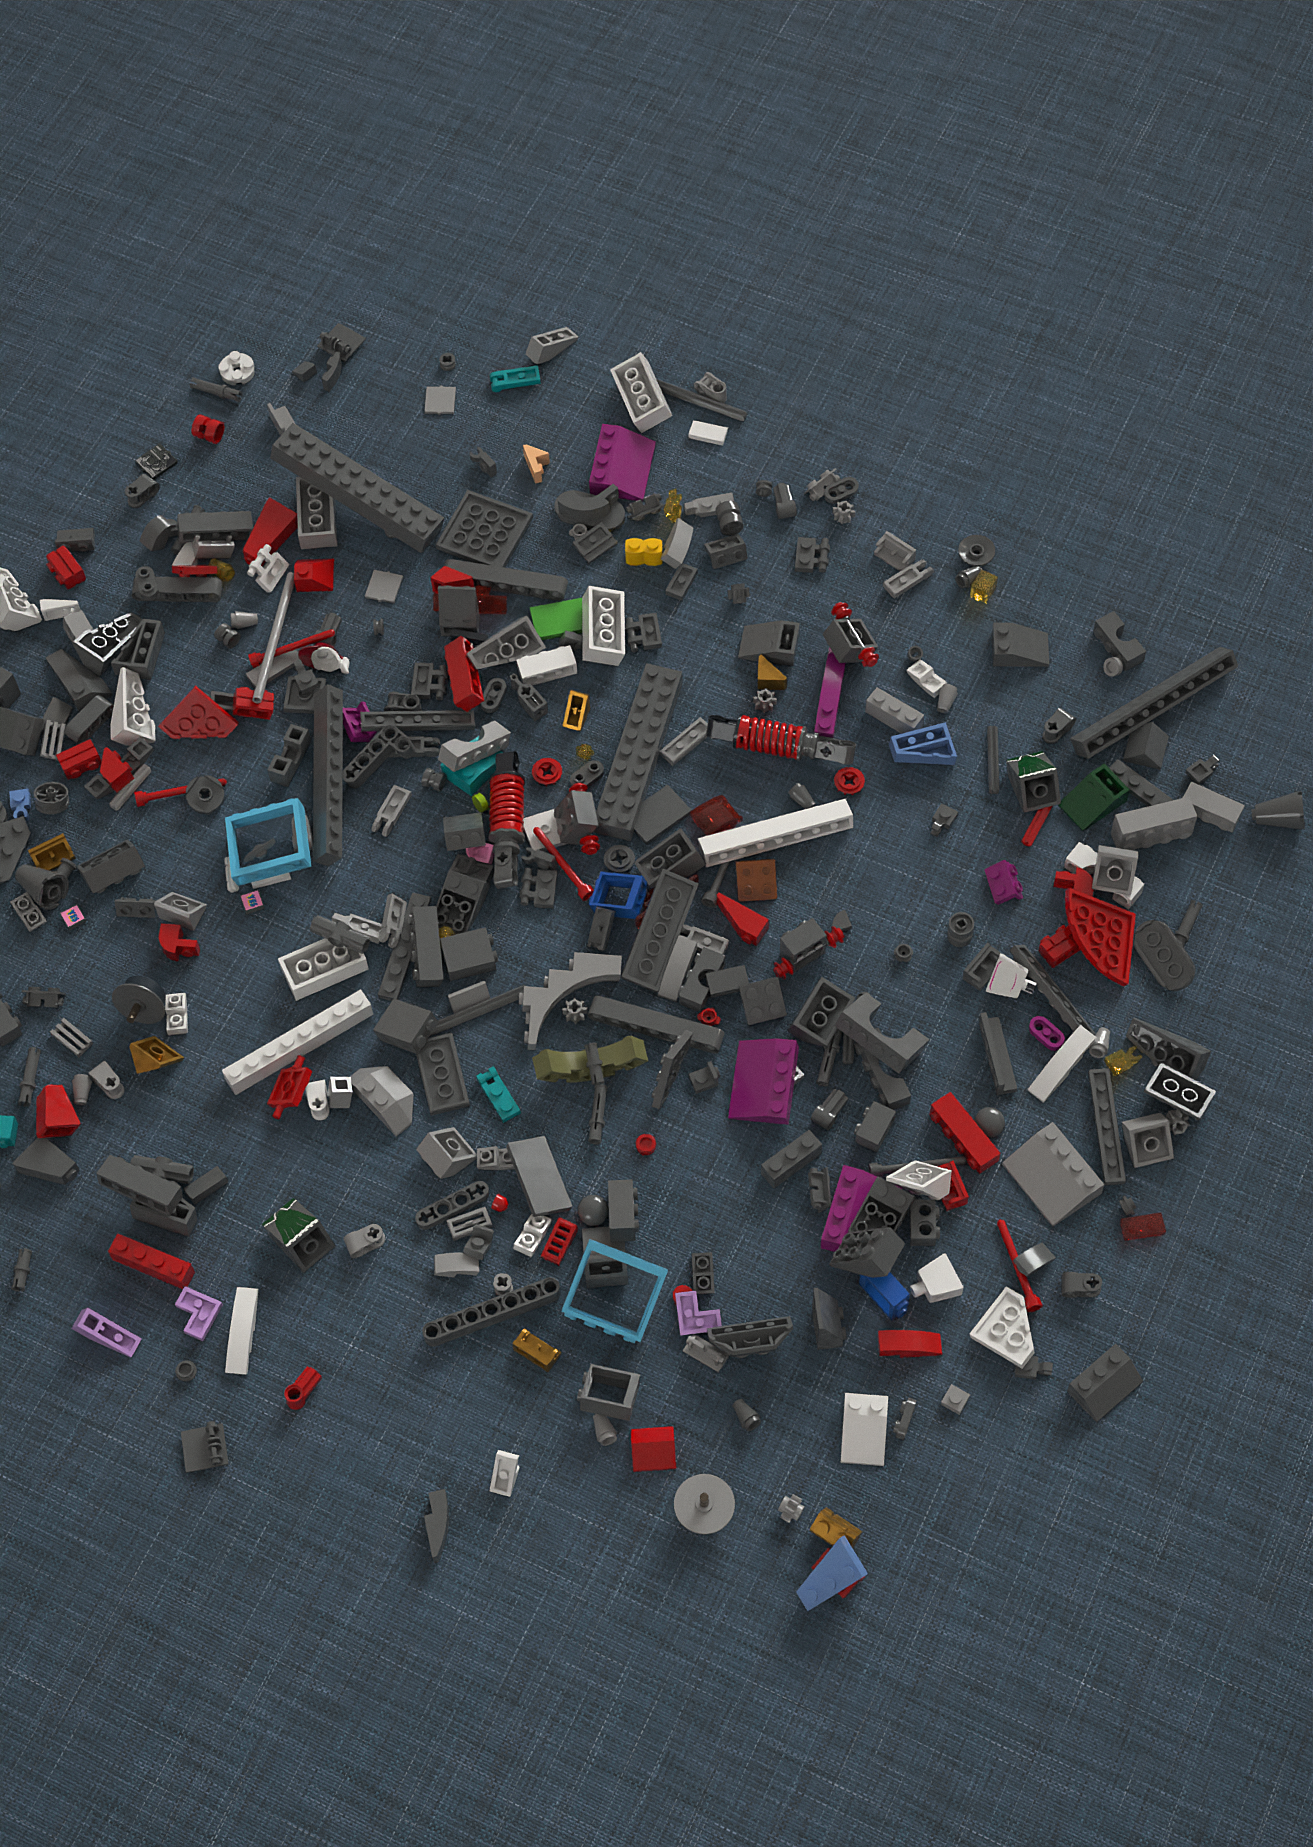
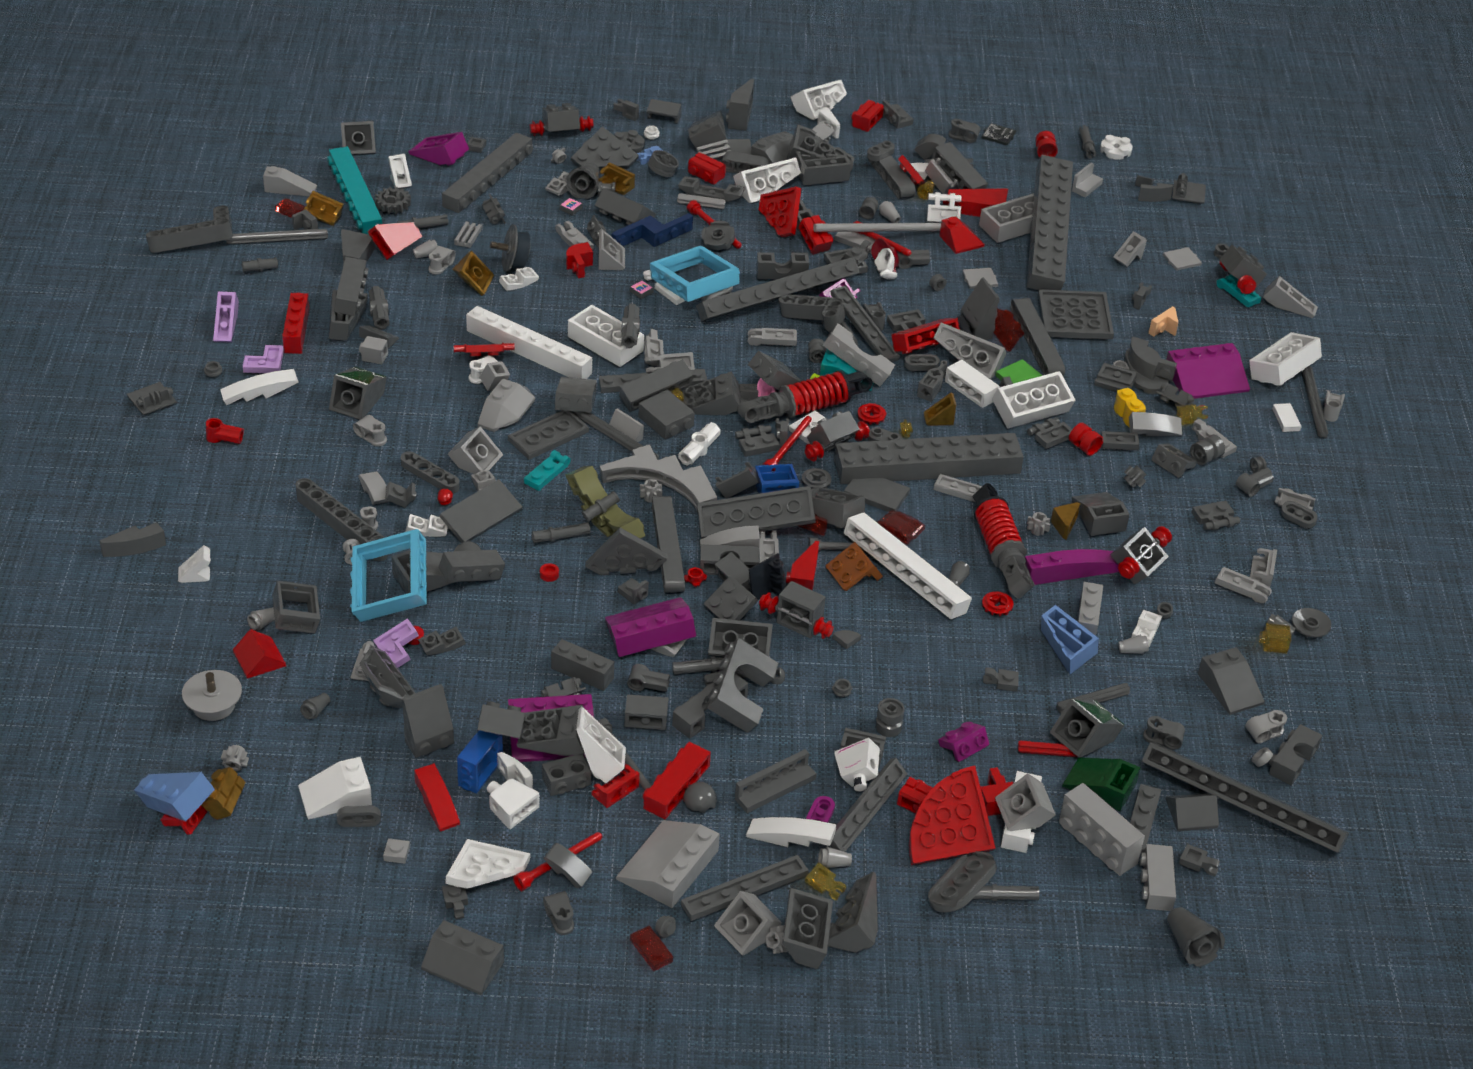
camera: 60 degrees right, 20 degrees down
(114, 771) = (706, 183): red slope -> none
(131, 934) = (572, 235): none -> light grey hinge
(164, 853) = (653, 231): none -> dark blue bracket
(234, 1197) = (374, 350): none -> light grey brick
(259, 850) = (679, 265): dark grey piece -> none
(416, 437) = (1132, 248): none -> light grey slope
(450, 577) = (1007, 299): red slope -> none
(469, 1215) = (421, 495): light grey tile -> none
(497, 359) = (1243, 267): none -> dark grey brick
(532, 949) = (699, 444): none -> white piece
(536, 1350) = (318, 556): pearl gold hinge -> none
(550, 1319) = (346, 547): none -> light grey bush
(564, 1224) = (436, 542): red slope -> none
(671, 608) = (1086, 439): none -> red wheel
(750, 950) = (767, 577): none -> black hinge
(843, 512) = (1276, 522): light grey gear -> none
(907, 1261) = (514, 769): none -> white slope
(1080, 645) = (1266, 725): none -> light grey piece

